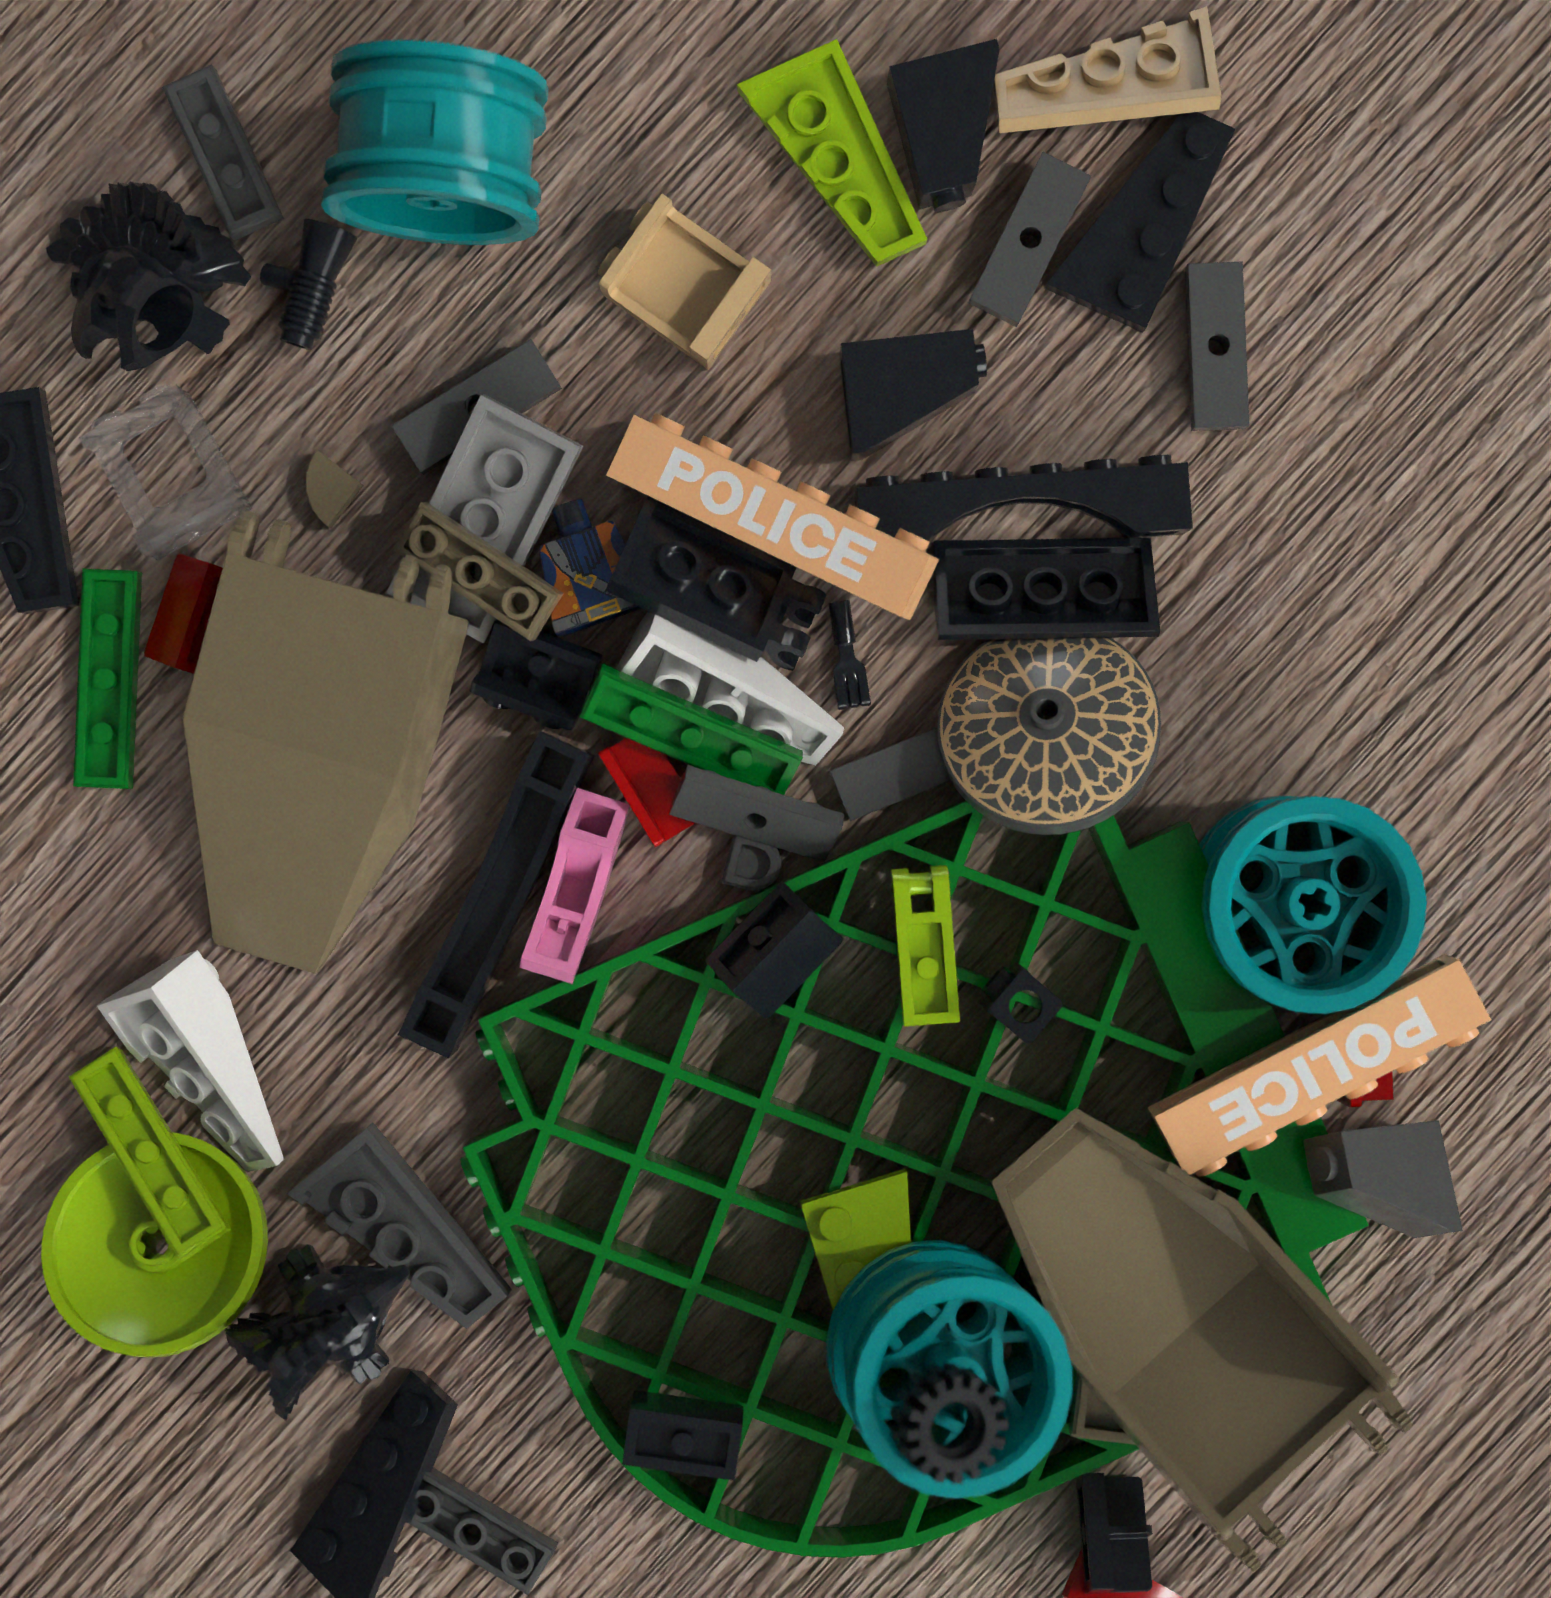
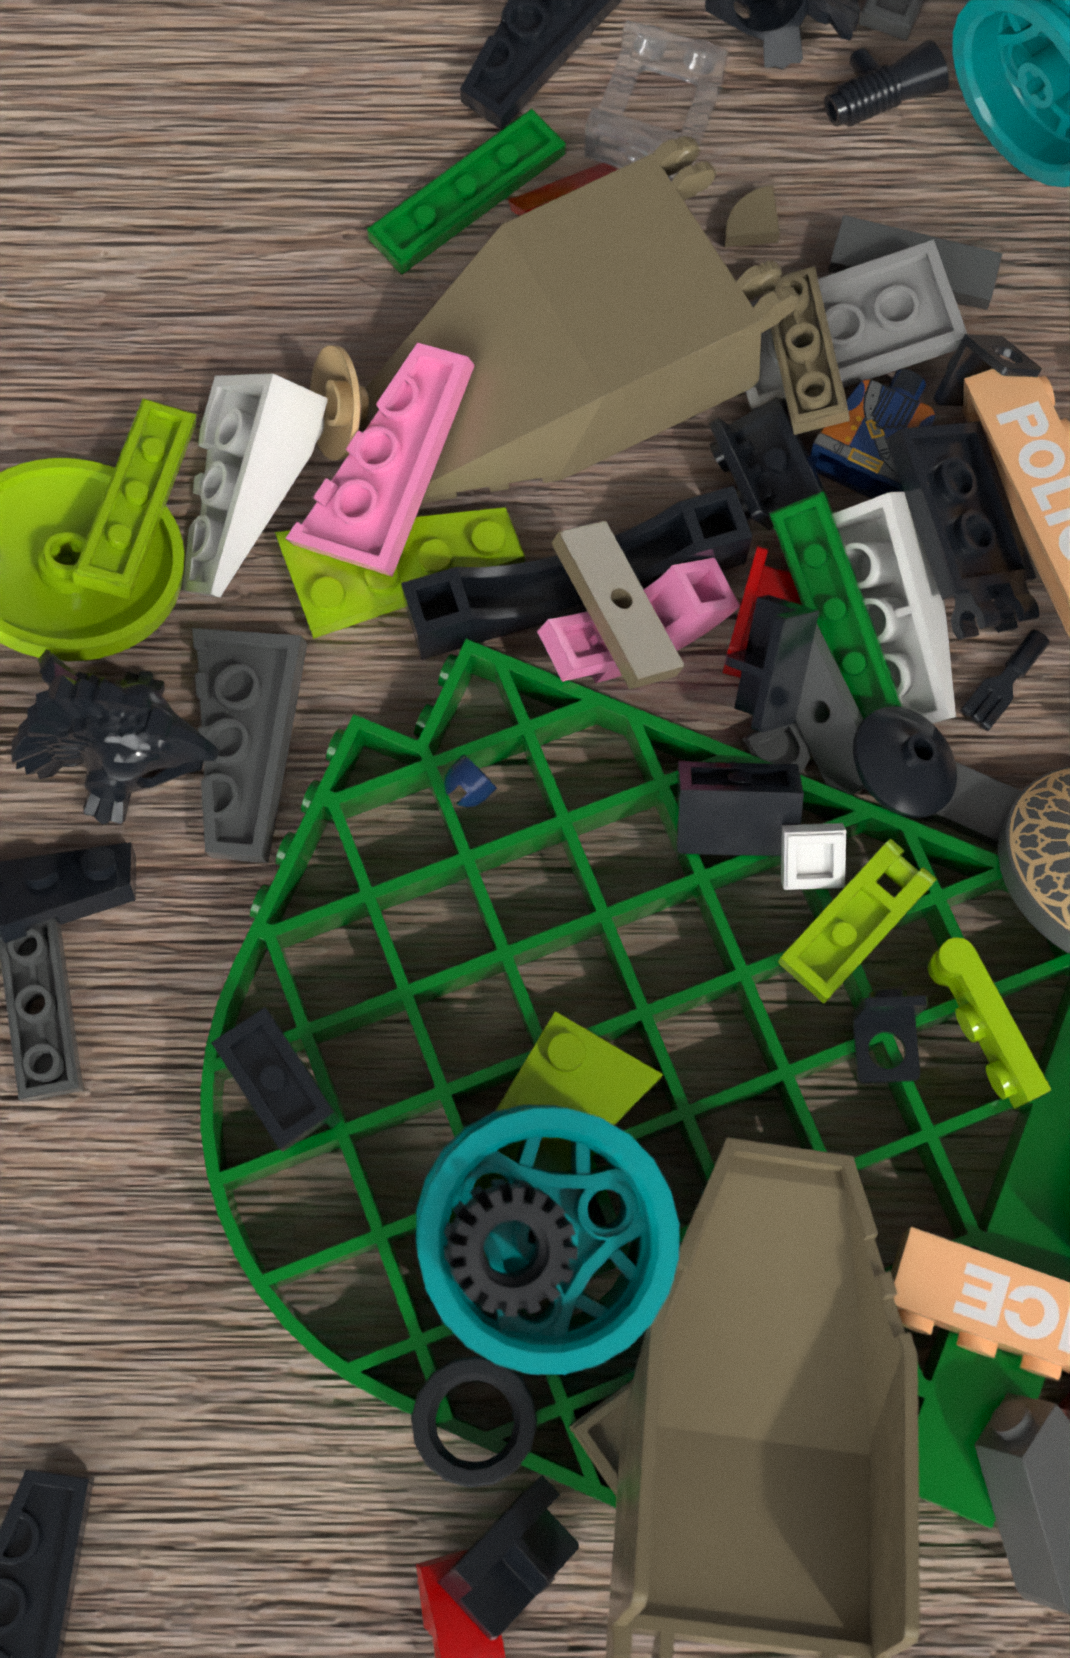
camera: 45 degrees right, 15 degrees down
(212, 941) = (346, 404): none -> tan dish
(302, 973) = (381, 484): none -> bright pink wing
(357, 1017) = (345, 594): none -> lime wing
(519, 884) = (617, 604): none -> dark tan tile
(589, 1117) = (471, 779): none -> dark blue hinge
(601, 450) = (979, 355): none -> black bracket
(693, 824) = (774, 662): none -> black panel
(832, 815) = (904, 762): none -> black dish
(855, 935) = (813, 856): none -> white tile
(1035, 1533) = (425, 1428): none -> black tyre
(1067, 930) = (987, 1020): none -> lime plate

